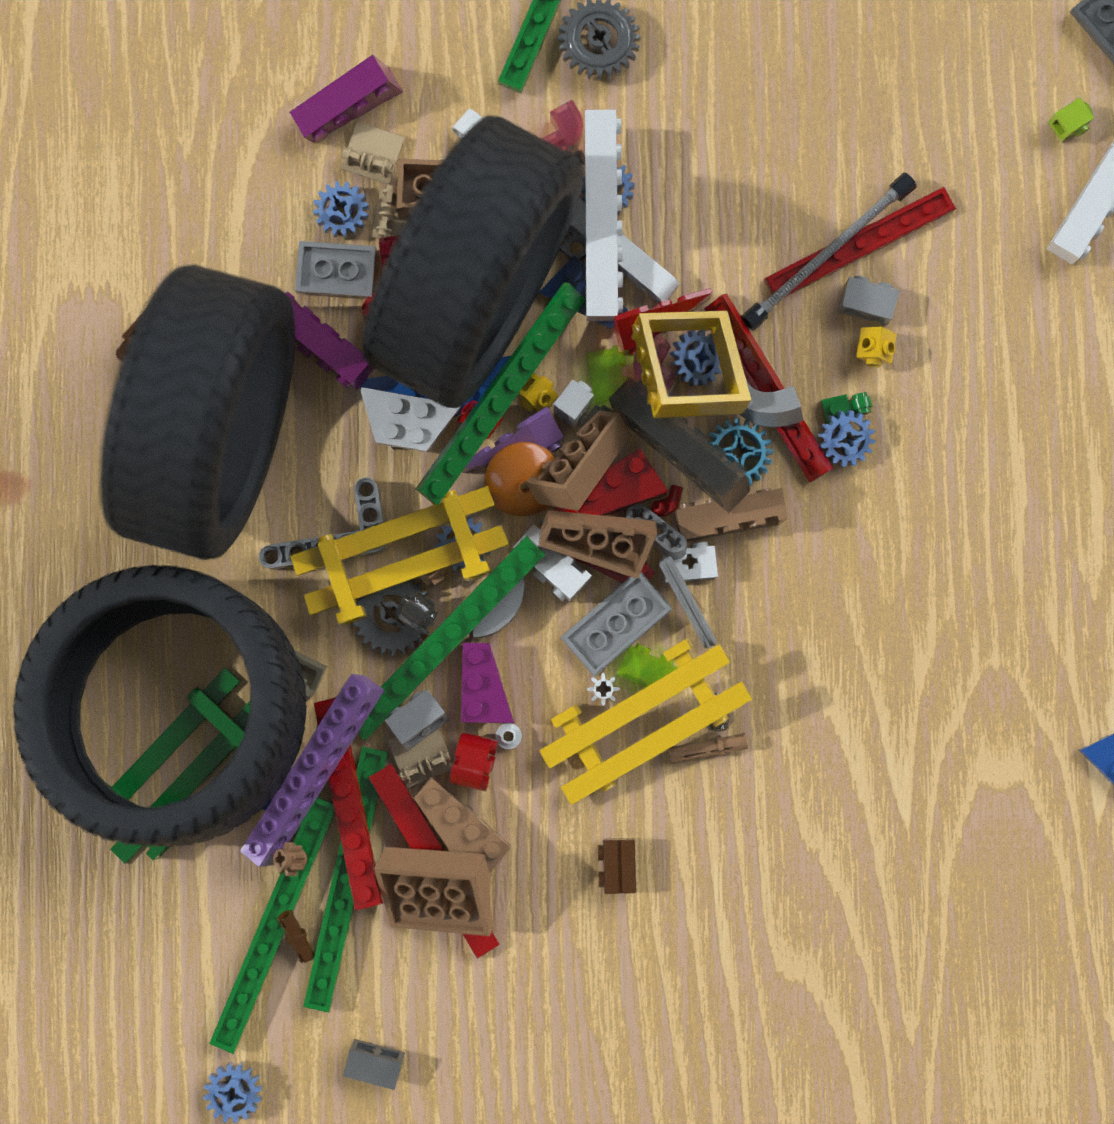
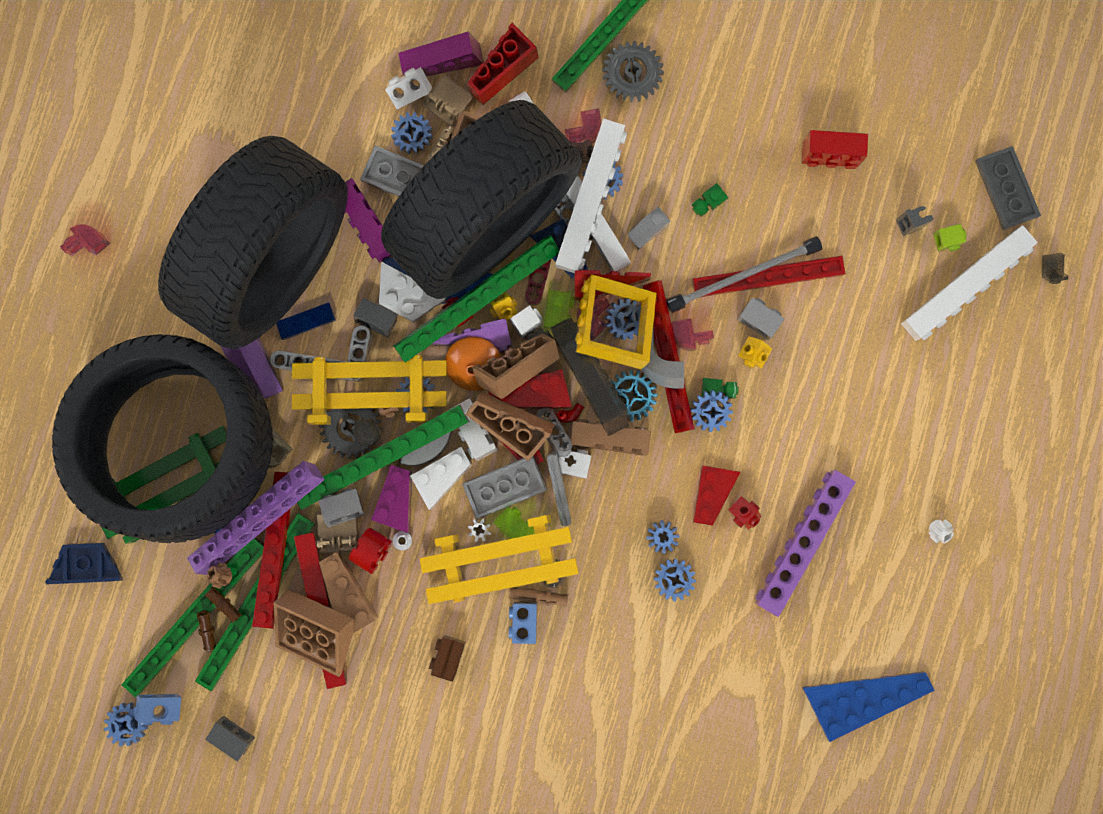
camera: 25 degrees right, 0 degrees up
(106, 907) = (84, 564): none -> dark blue wing
(242, 574) = (255, 363): none -> medium lavender wedge
(252, 1057) = (170, 708): none -> medium blue brick
(287, 497) = (305, 321): none -> clear blue tile
(307, 895) = (223, 604): none -> reddish brown pin
(324, 156) = (411, 91): none -> white brick
(376, 462) = (375, 317): none -> dark grey hinge
(430, 81) = (503, 64): none -> red wedge
(530, 636) = (440, 476): none -> white wedge
(576, 361) = (539, 292): none -> dark red beam
(687, 231) = (649, 228): none -> light grey slope
(707, 785) = (528, 623): none -> medium blue brick
(754, 167) = (712, 197): none -> green plate
(784, 357) = (686, 338): none -> clear pink brick
(832, 624) = (656, 540): none -> medium blue gear
(873, 656) = (671, 588): none -> medium blue gear
(883, 542) = (713, 491): none -> red wing
(889, 54) = (834, 149): none -> red brick
(934, 553) = (745, 513): none -> red brick
(1018, 113) = (912, 222): none -> dark grey hinge
(1045, 479) = (805, 554): none -> medium lavender brick

